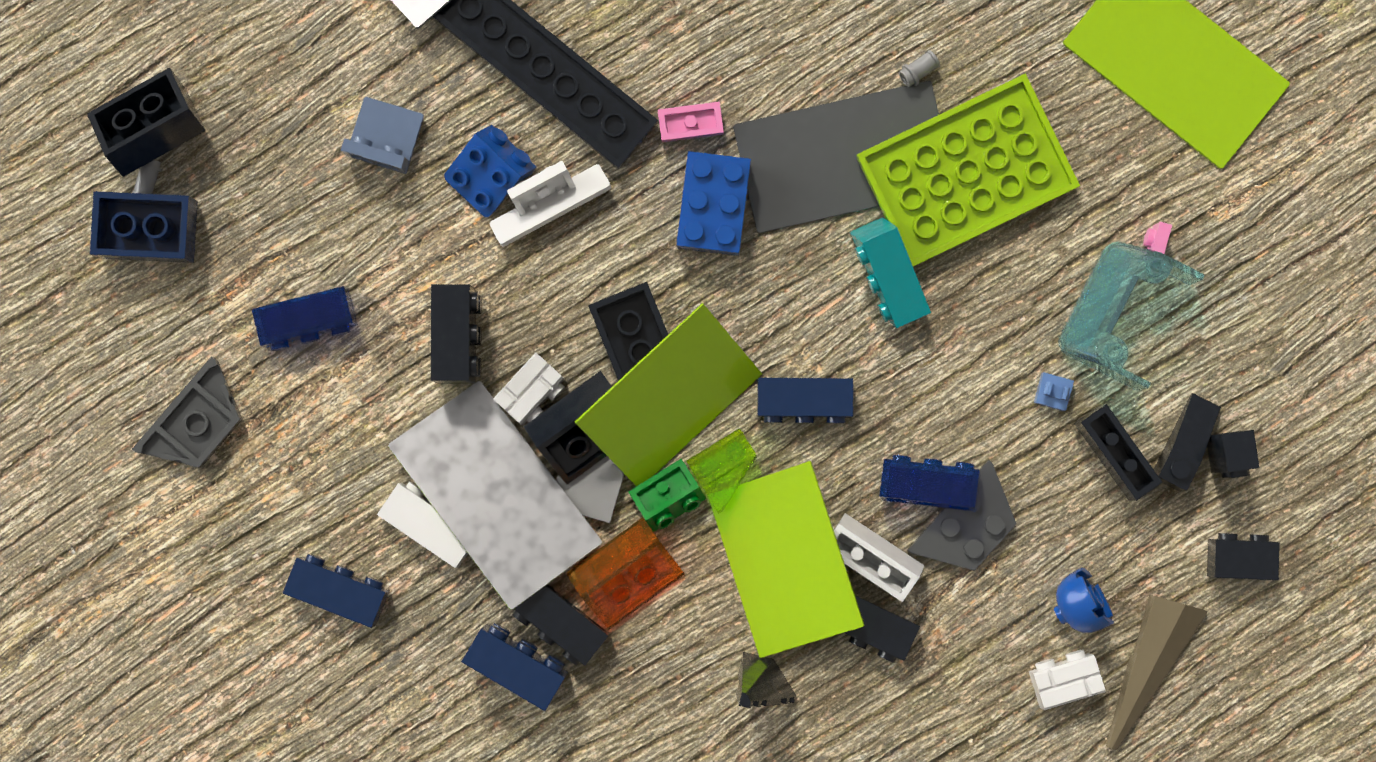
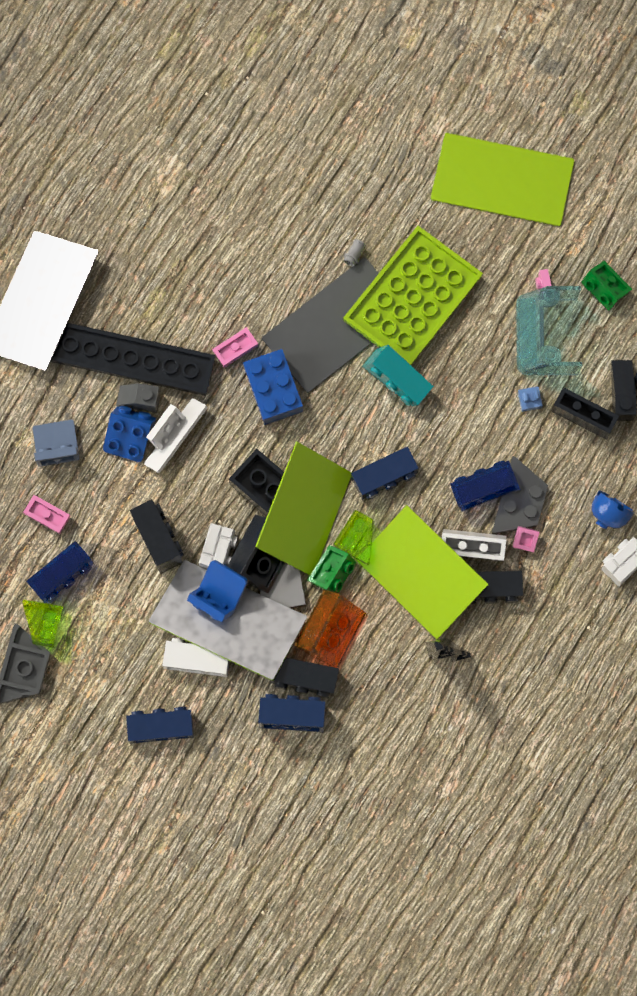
camera: 25 degrees left, 10 degrees down
(249, 374) = (42, 621): none -> clear neon green wing
(325, 228) = (46, 514): none -> bright pink plate
(497, 454) = (218, 591): none -> blue bracket
(526, 127) = (139, 397): none -> dark grey slope
(948, 582) = (525, 539): none -> bright pink plate
(1240, 285) = (606, 285): none -> green bracket

